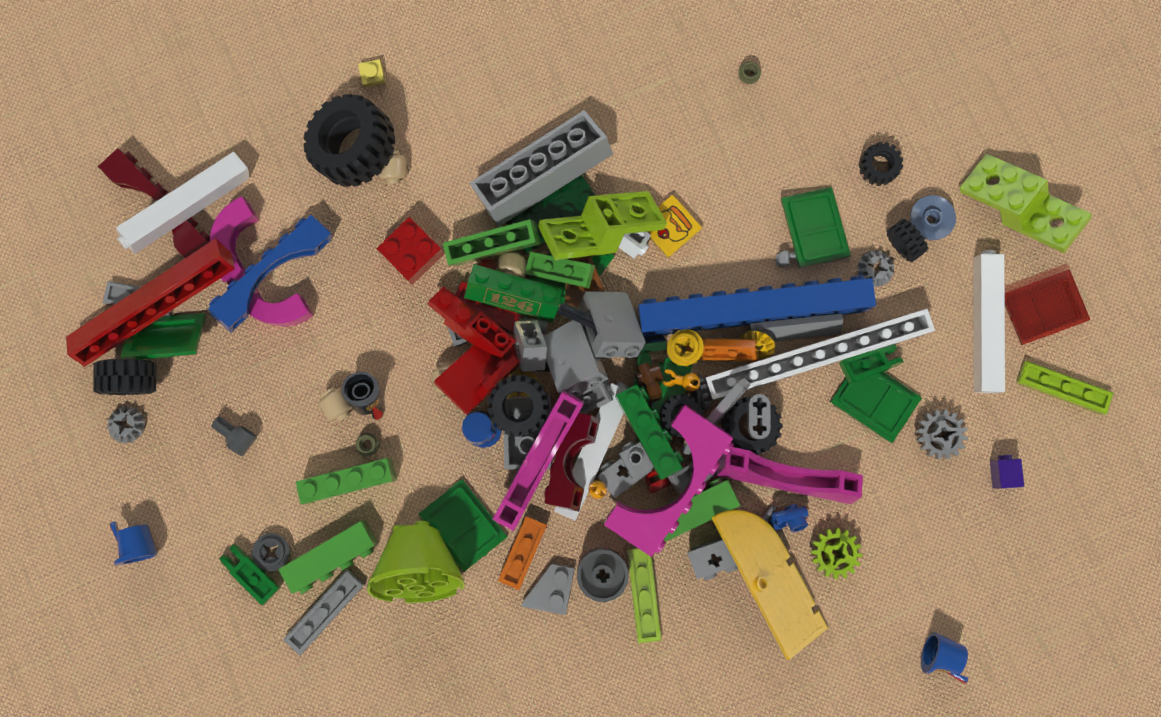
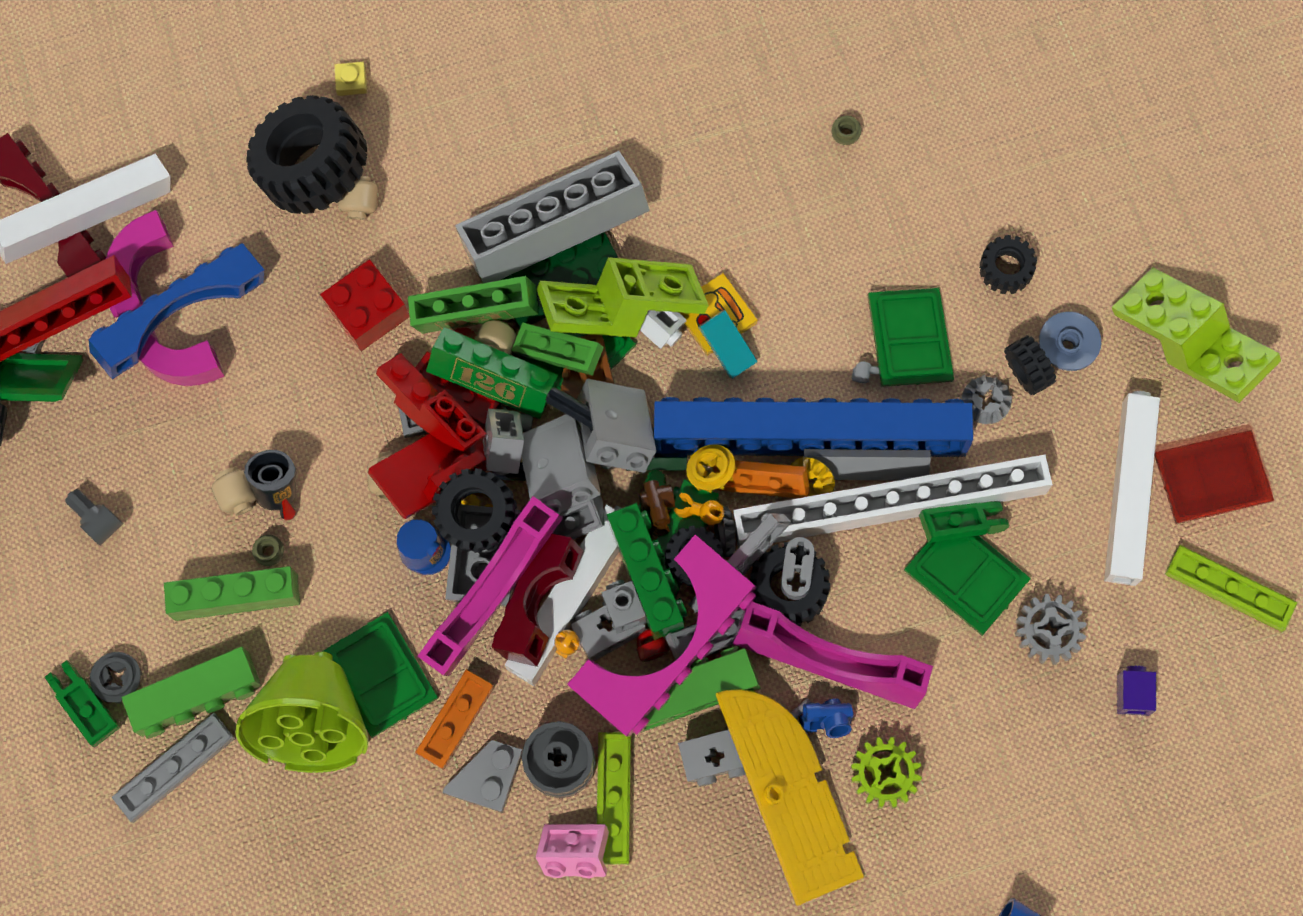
camera: 10 degrees right, 10 degrees down
(621, 637) = (573, 850): none -> bright pink bracket
(683, 249) = (727, 344): none -> teal tile

